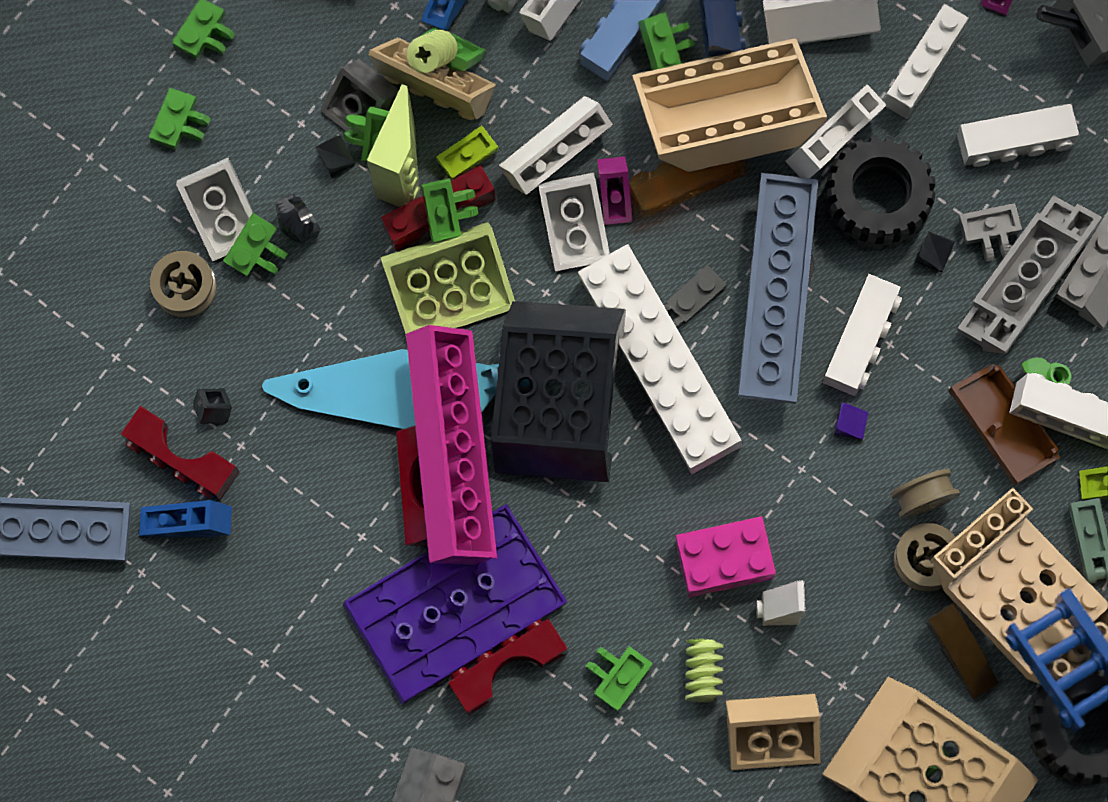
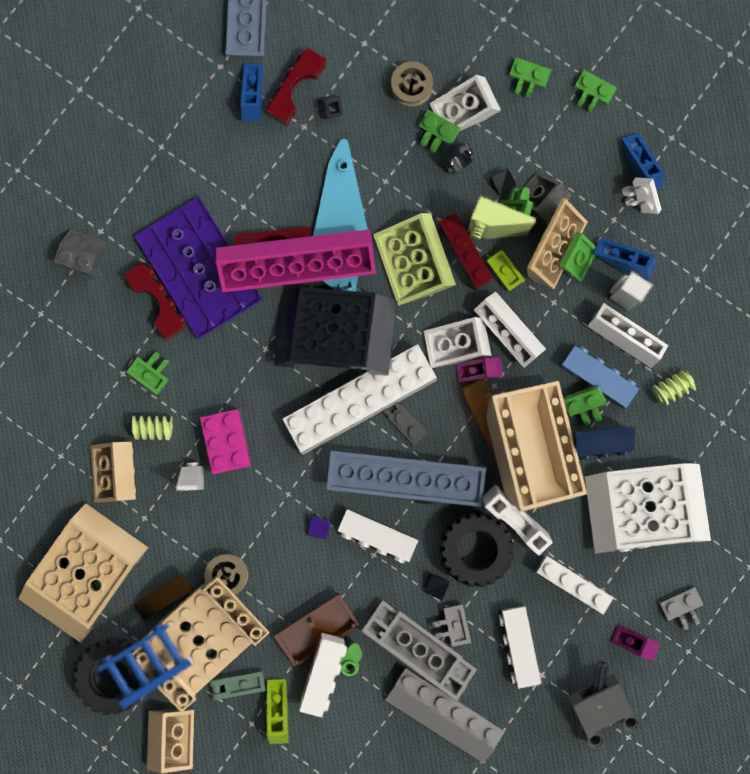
camera: 90 degrees right, 10 degrees up
(431, 51) = (567, 241): yellowish green piece -> none
(442, 211) = (459, 251): bright green hinge -> none
(925, 493) = (265, 574): dark tan wheel -> none

